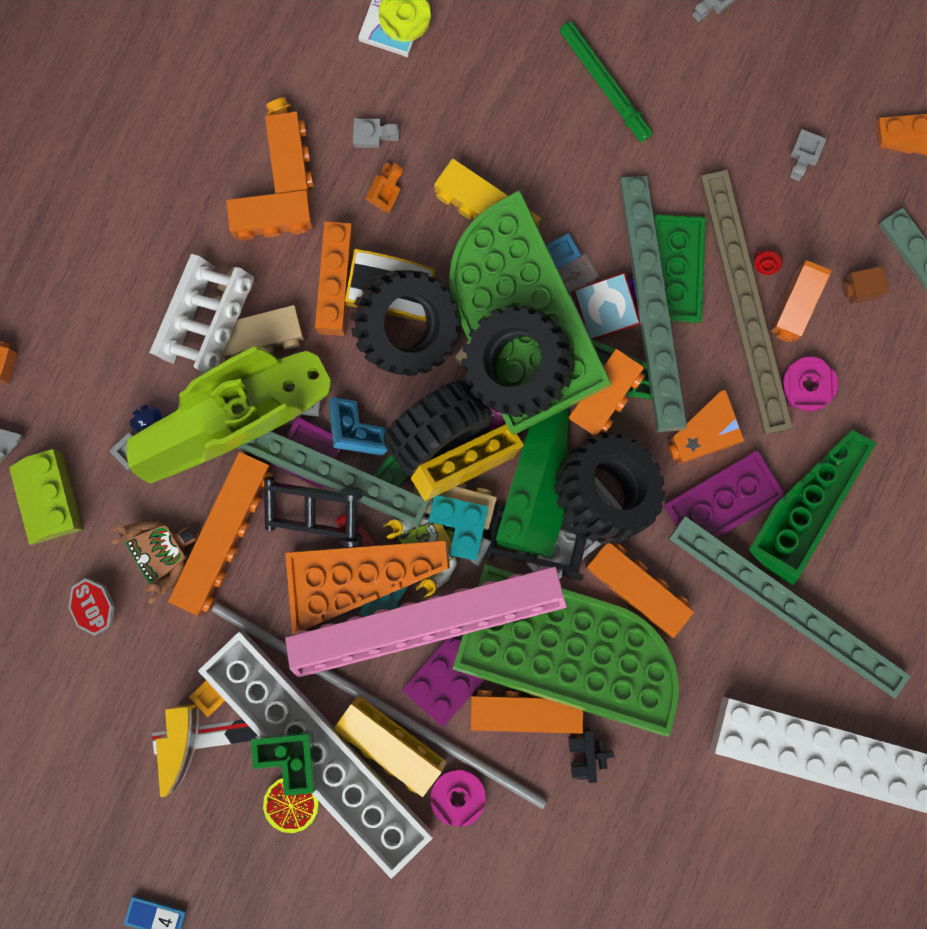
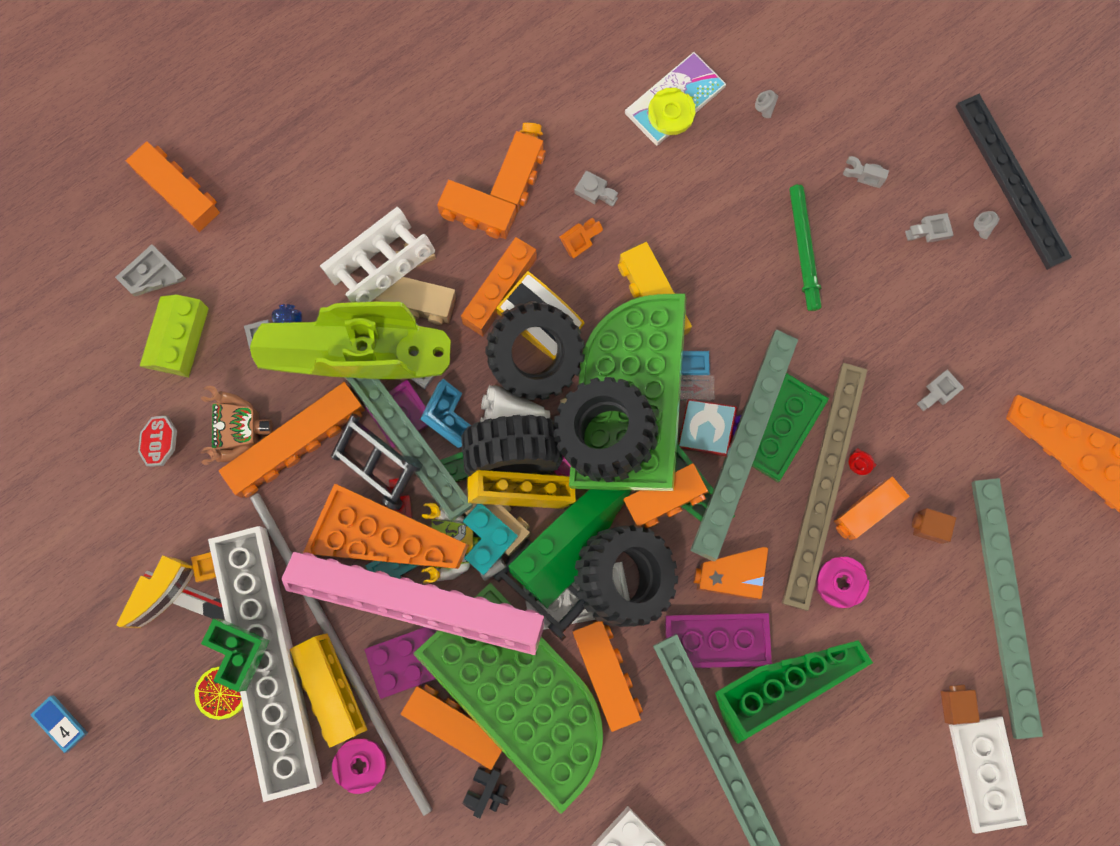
camera: 25 degrees right, 5 degrees down
(403, 391) = (503, 403): none -> white cone

